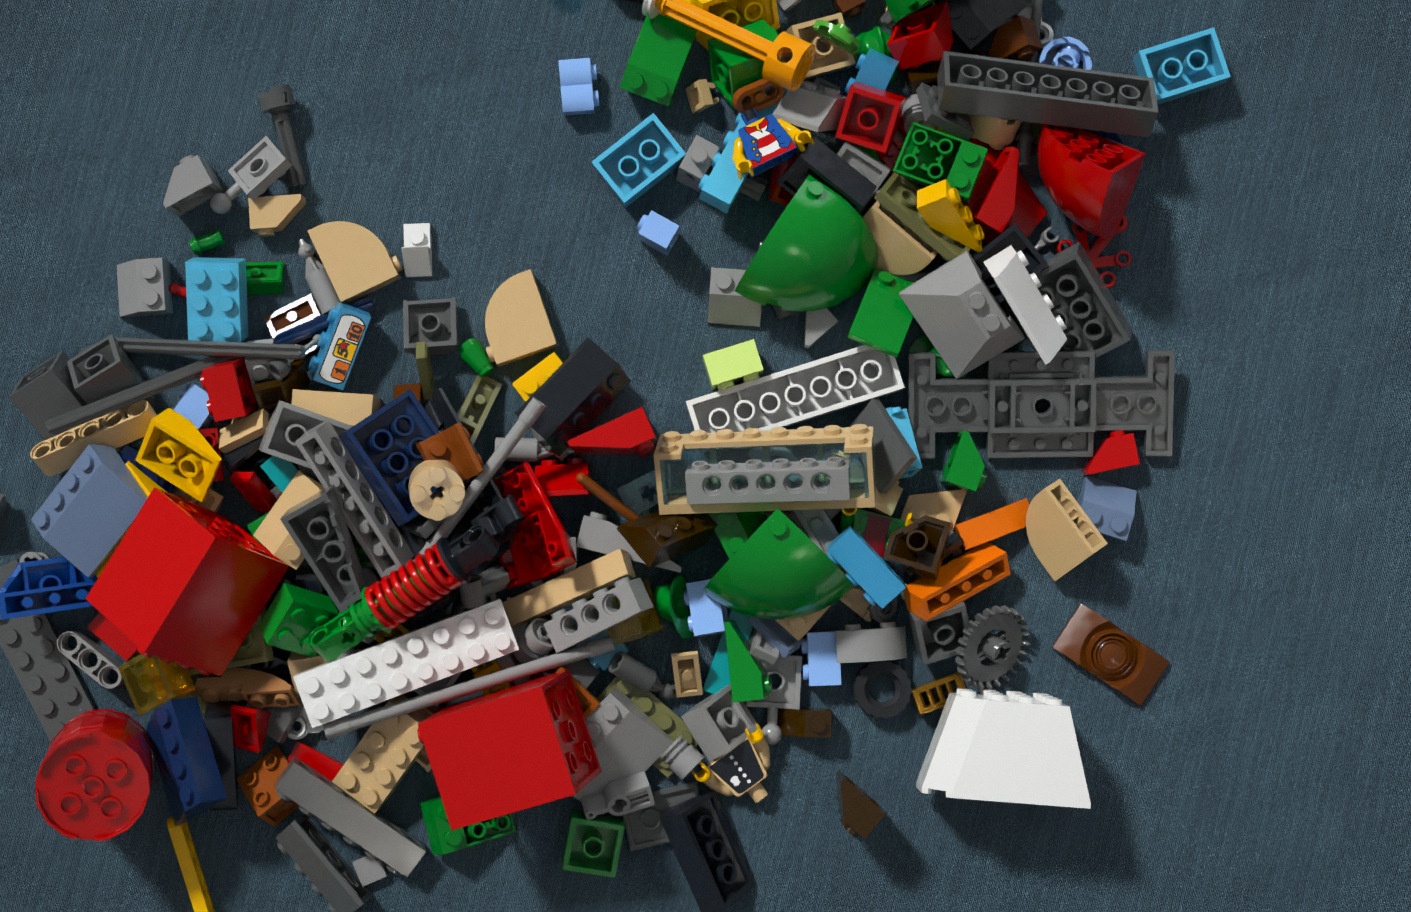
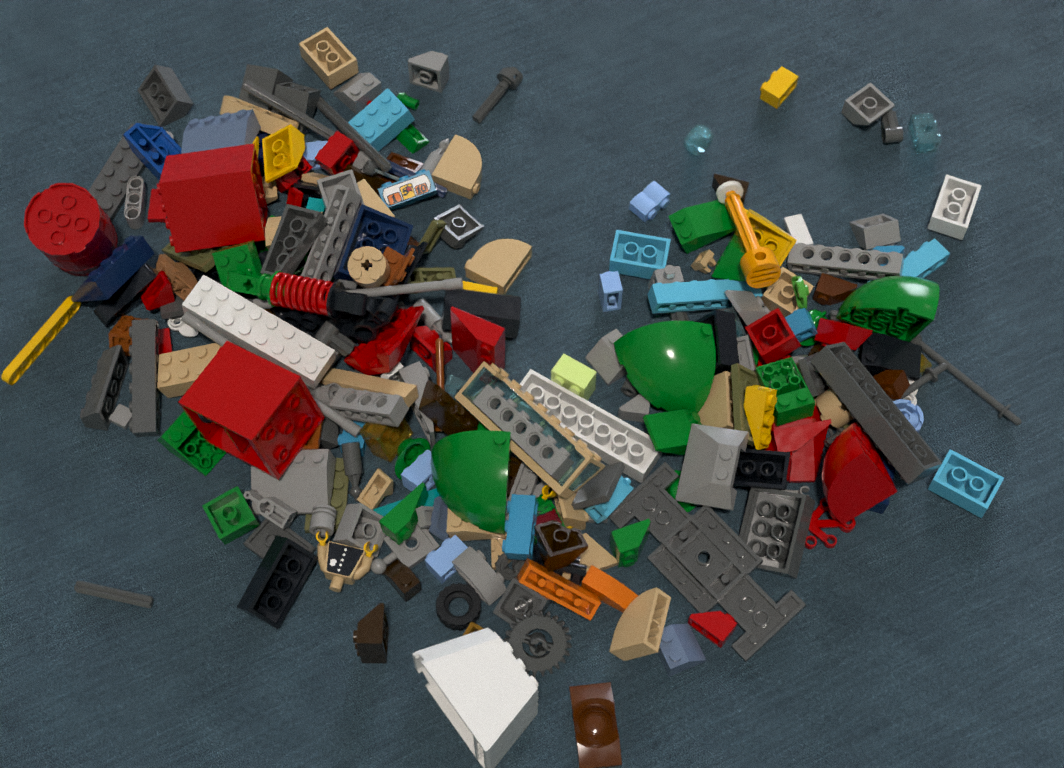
camera: 50 degrees right, 25 degrees down
(69, 286) = (328, 57): none -> tan brick
(154, 682) = (152, 228): clear yellow brick -> none
(252, 174) = (459, 93): light grey plate -> none
(273, 213) = (451, 117): tan slope -> none
(417, 250) = (492, 194): white slope -> none
(476, 357) = (460, 257): green cone -> none
(756, 96) = (728, 277): dark orange plate -> none
(766, 143) = (705, 294): torso -> none
(1027, 303) = (752, 491): white slope -> none

